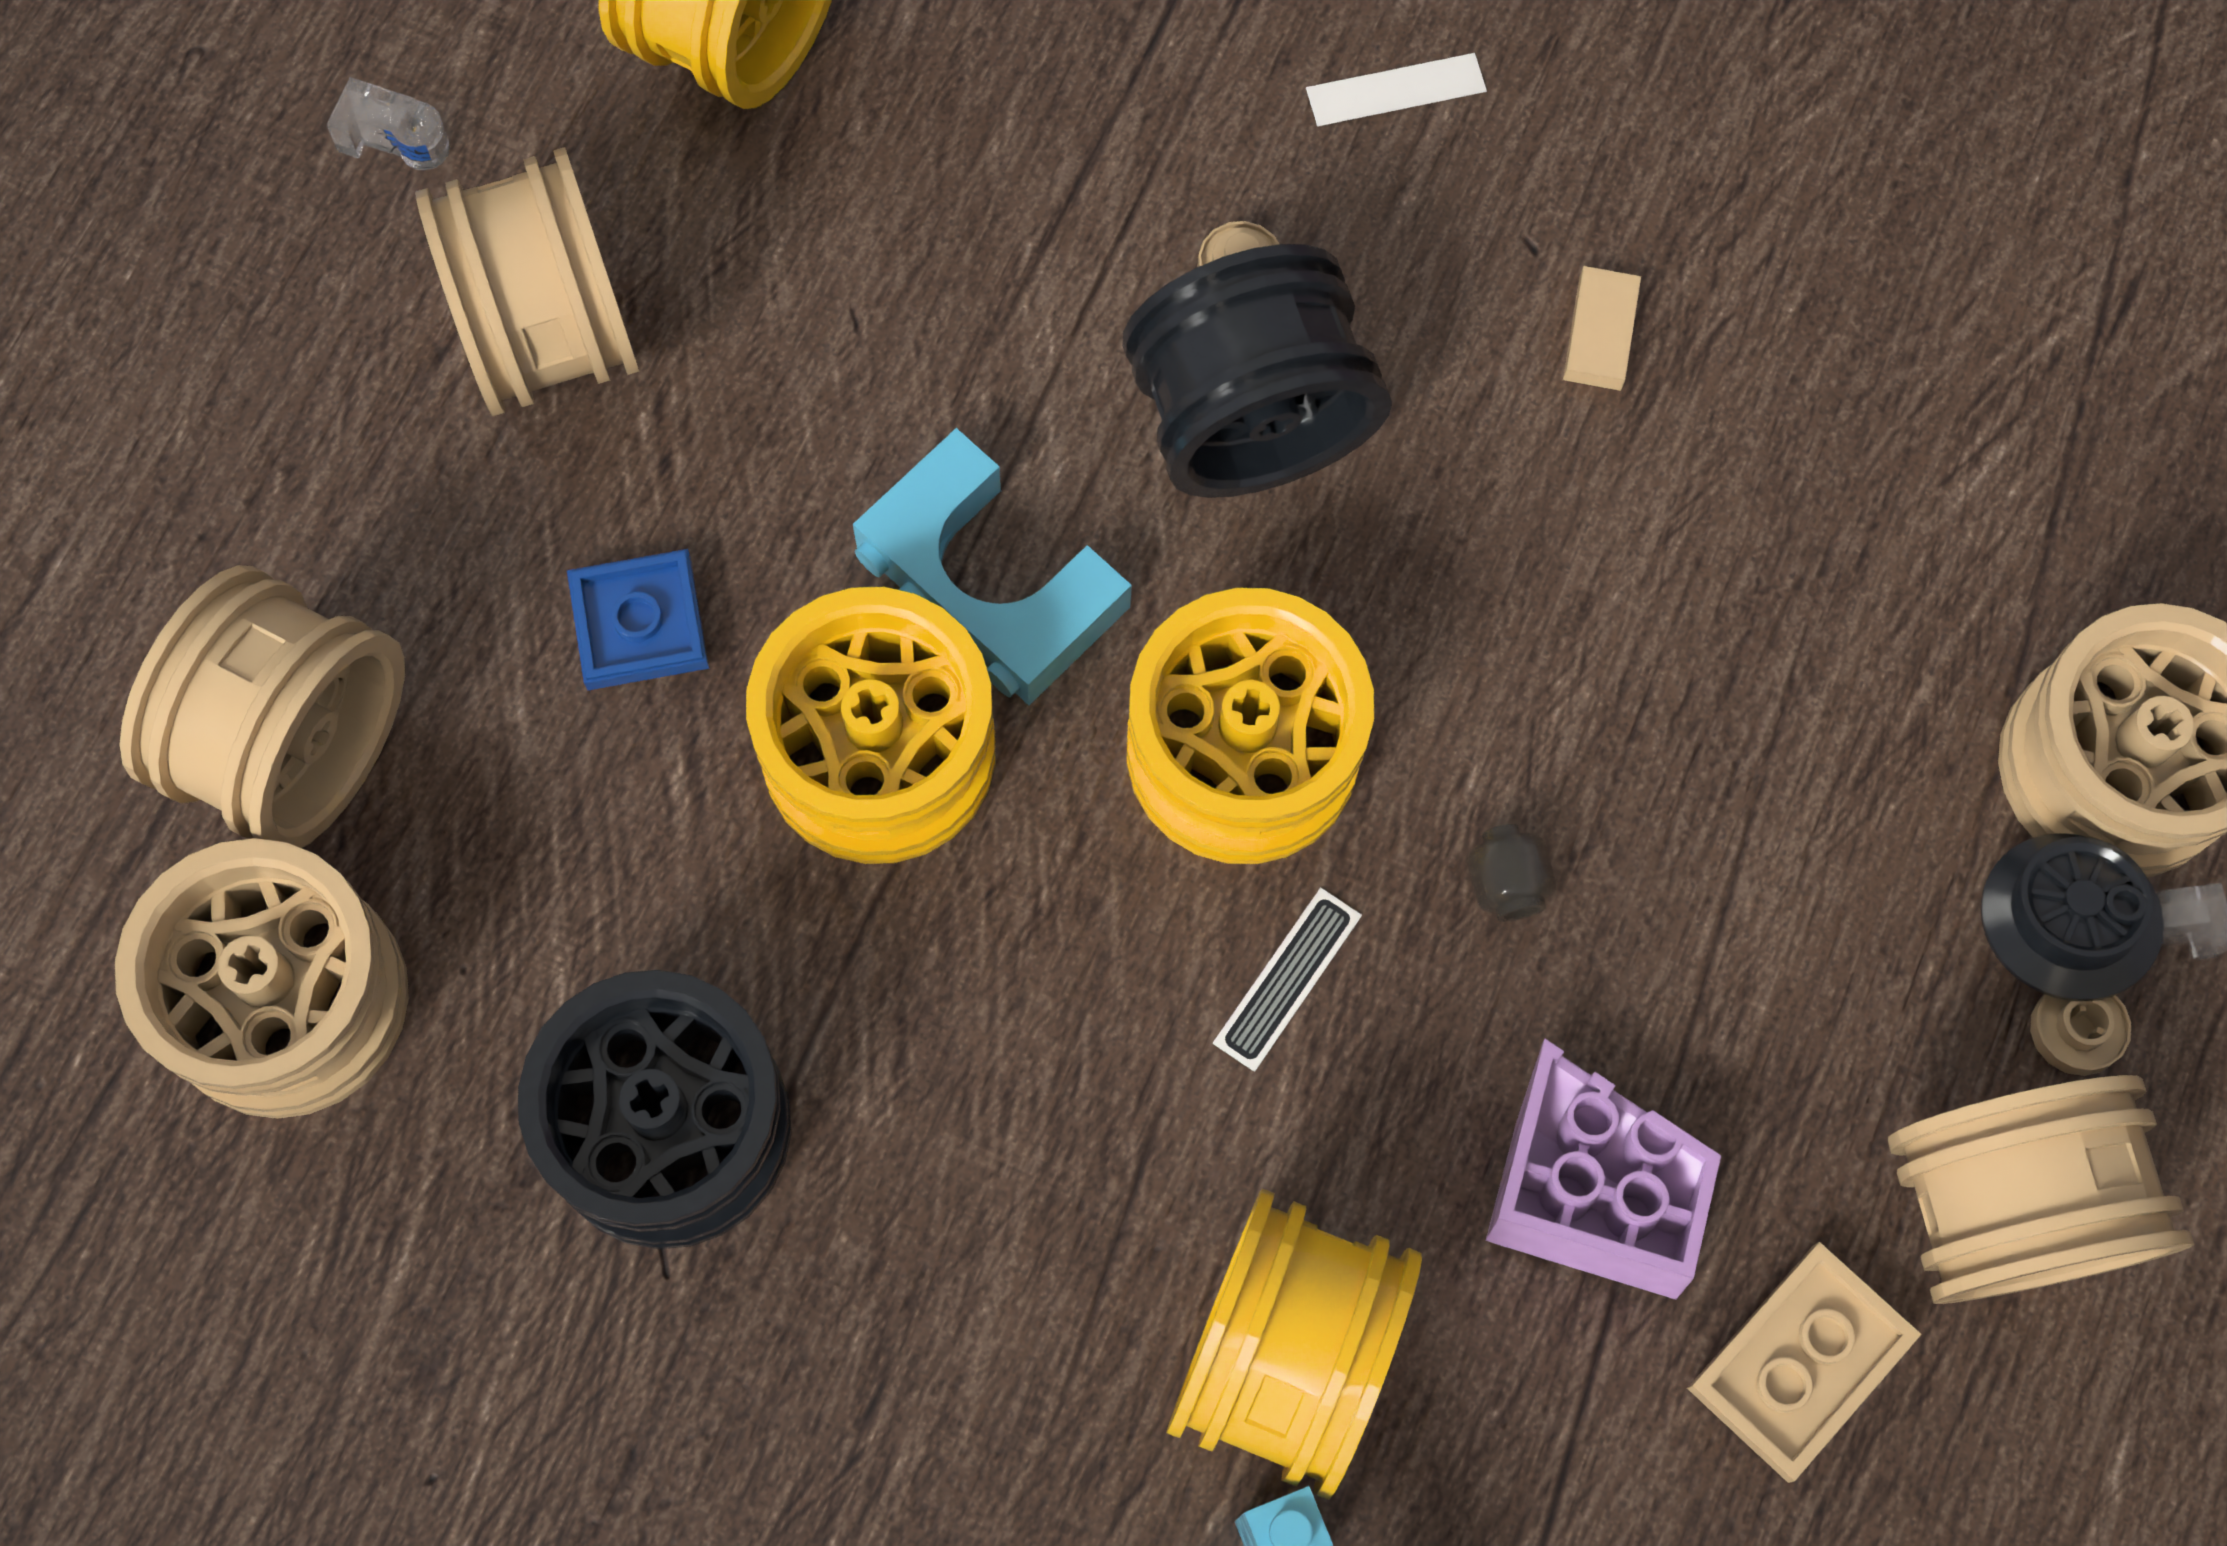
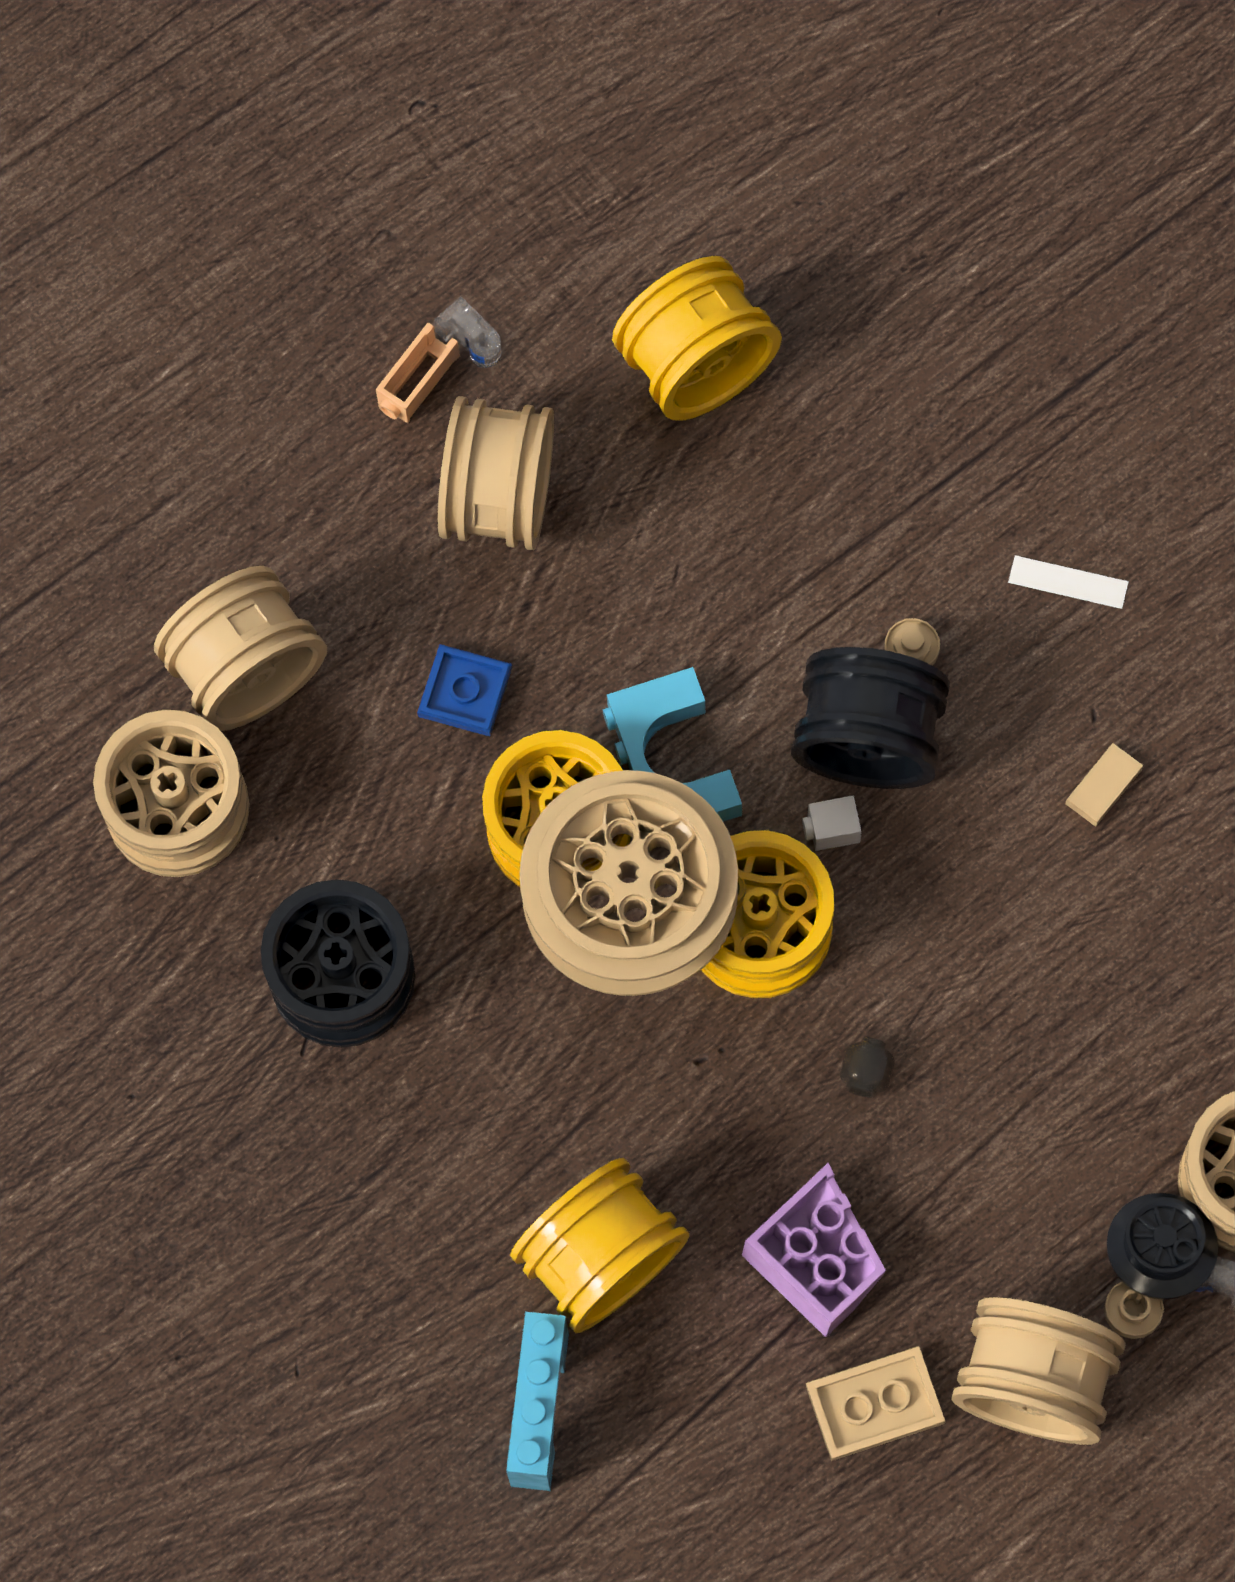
camera: 35 degrees right, 0 degrees up
(317, 211) = (423, 345): none -> light nougat window
(1073, 878) = (601, 944): none -> tan wheel
(1270, 550) = (832, 823): none -> white brick
(1287, 979) = (714, 1064): sticker -> none

